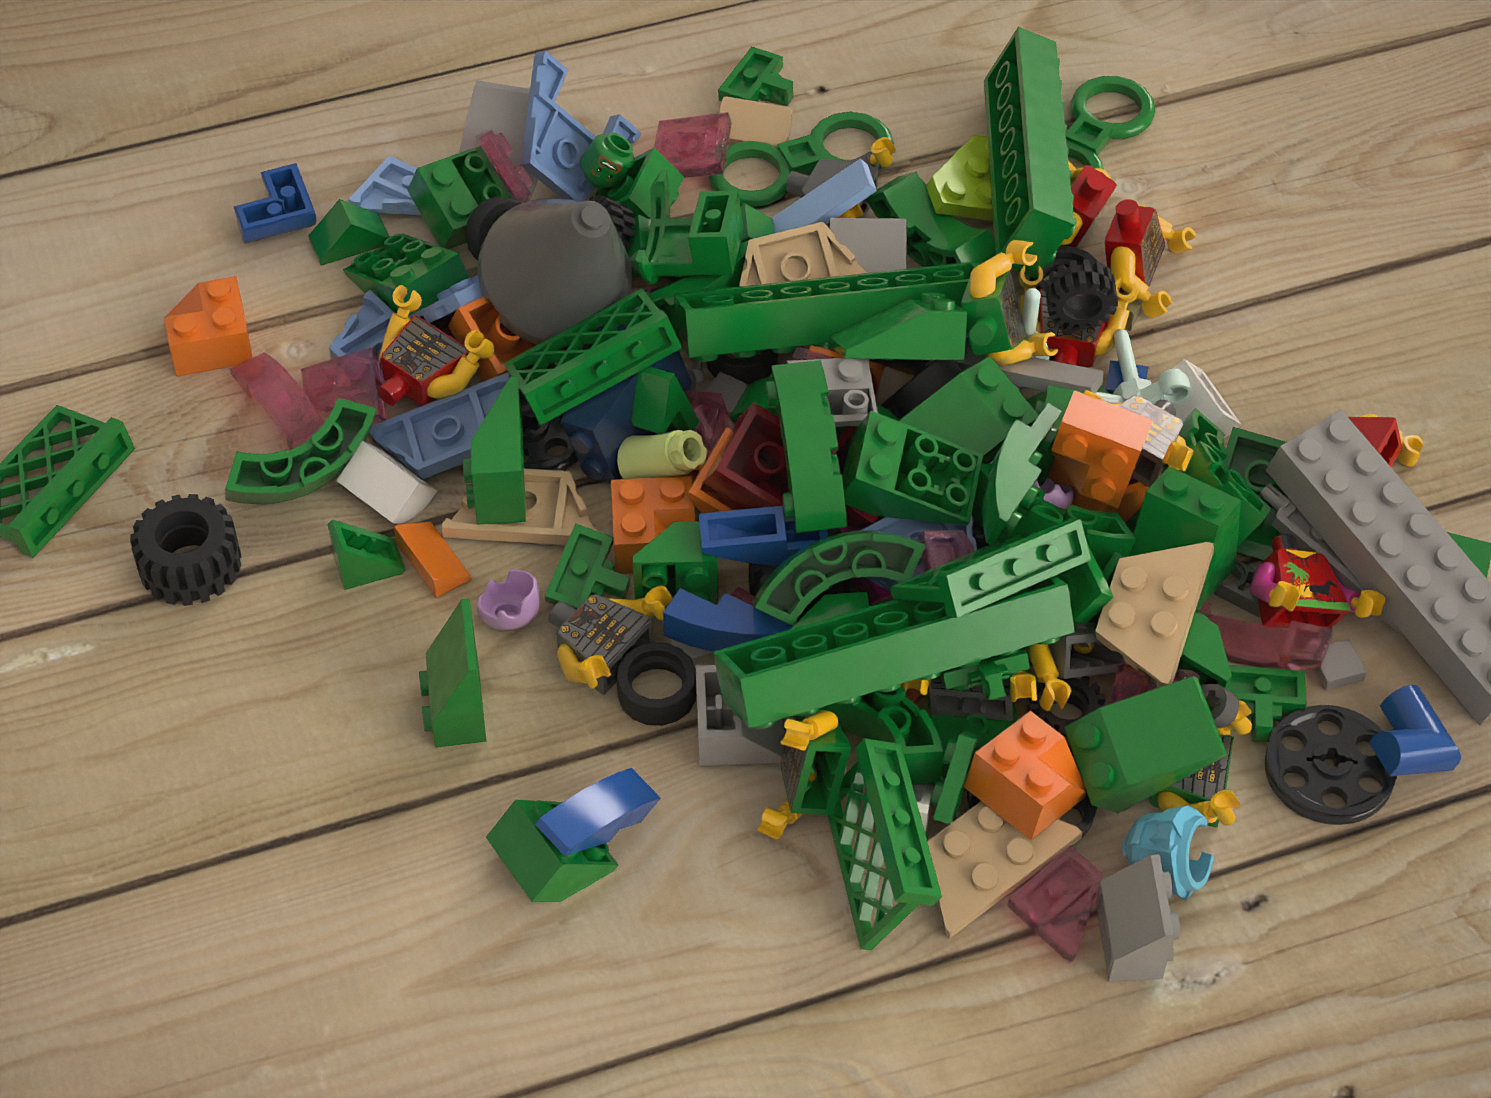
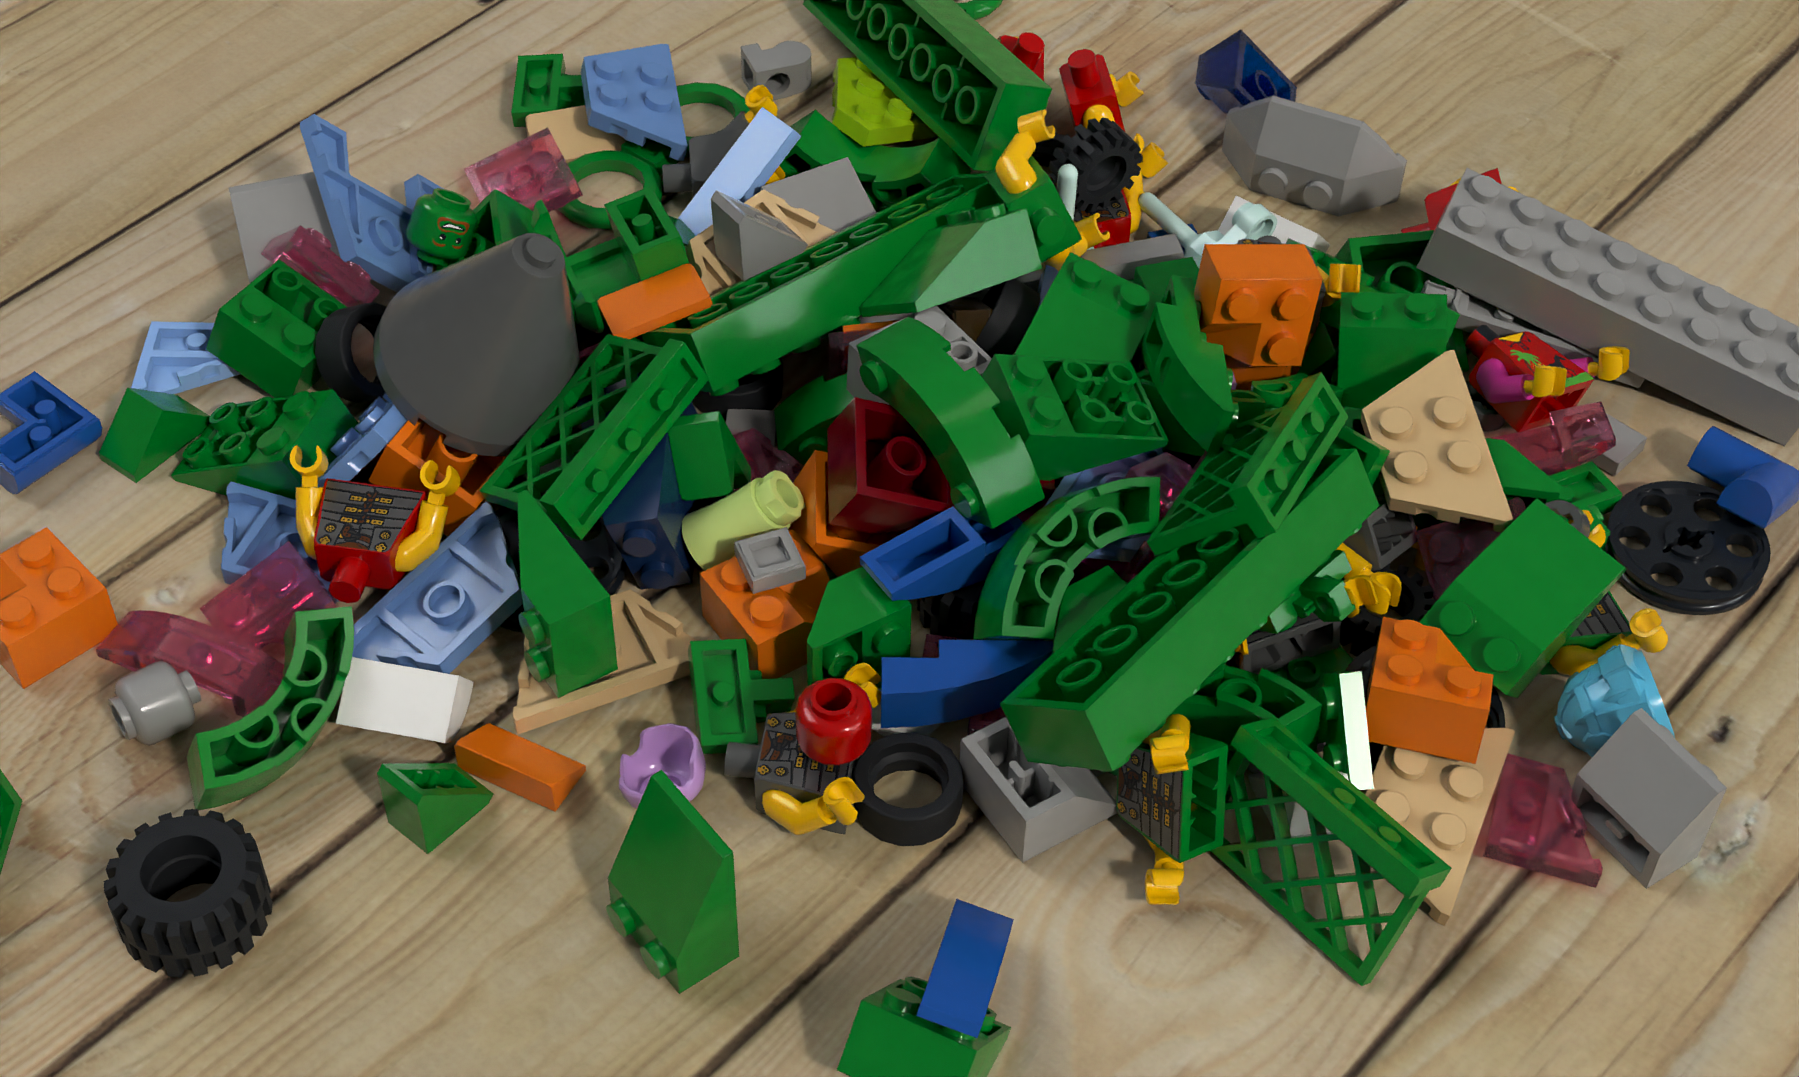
camera: 30 degrees left, 5 degrees down
(237, 420) = (154, 703): none -> light grey head
(618, 616) = (833, 721): none -> red head
(654, 490) = (770, 560): none -> light grey tile
(691, 277) = (654, 302): none -> orange slope
(789, 254) = (750, 238): none -> light grey slope
(807, 110) = (635, 96): none -> medium blue wing
(929, 127) = (780, 69): none -> light grey leg
(1274, 276) = (1239, 74): none -> clear blue slope
(1275, 355) = (1311, 157): none -> light grey wedge

